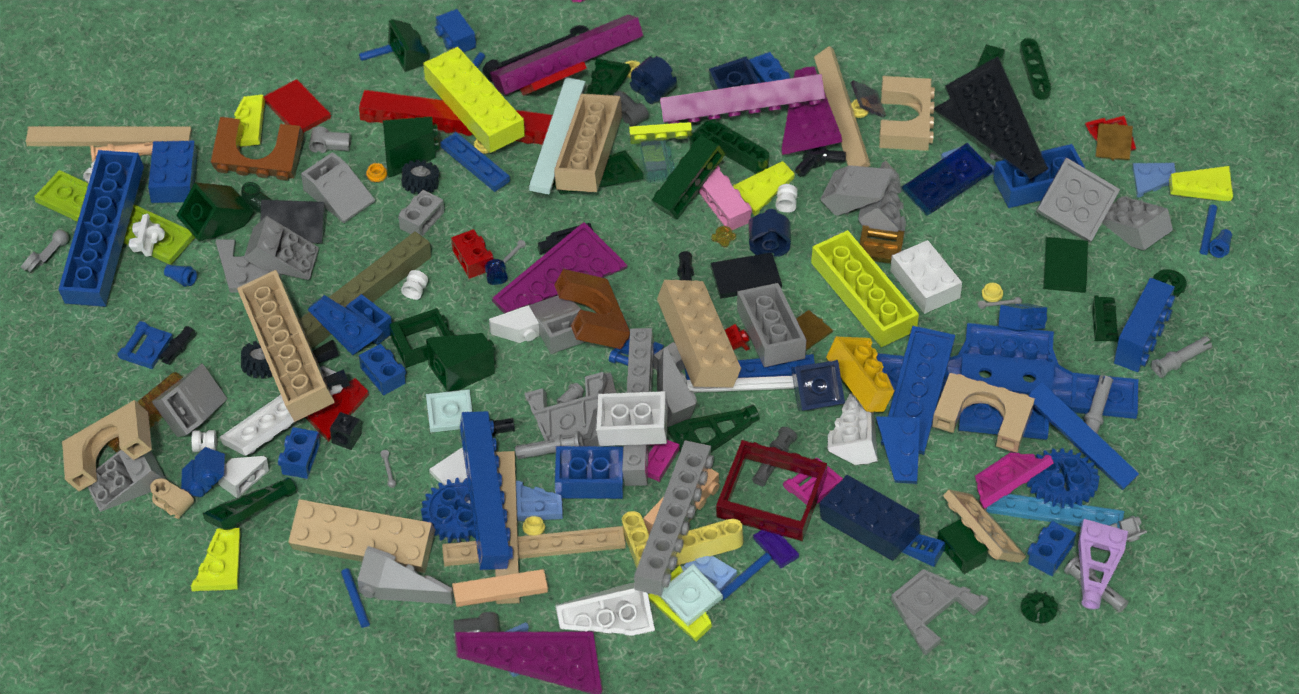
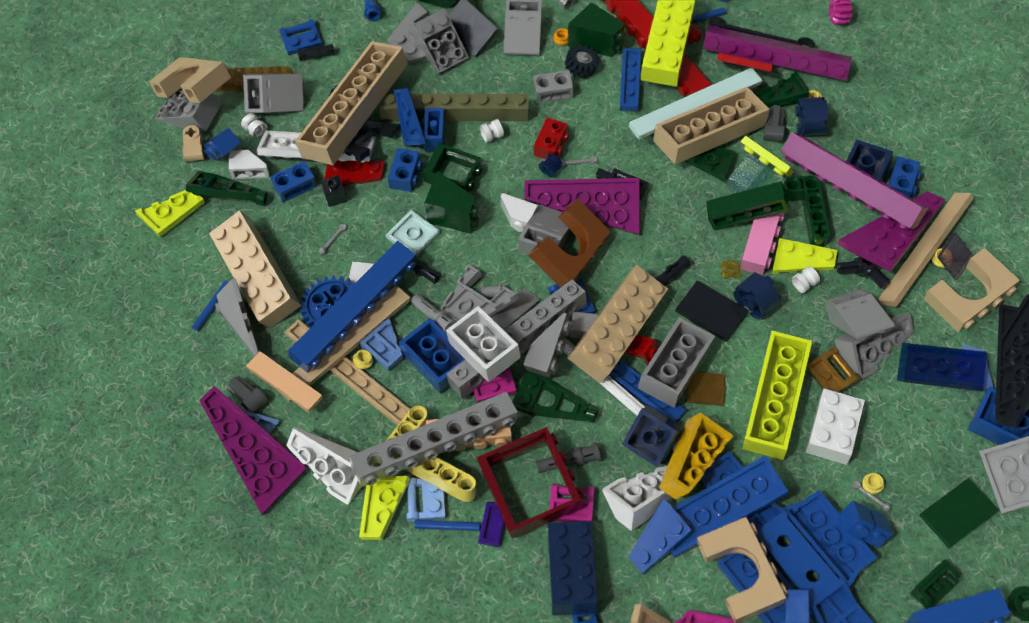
camera: 50 degrees right, 10 degrees up
(690, 595) = (387, 504): light aqua tile -> none

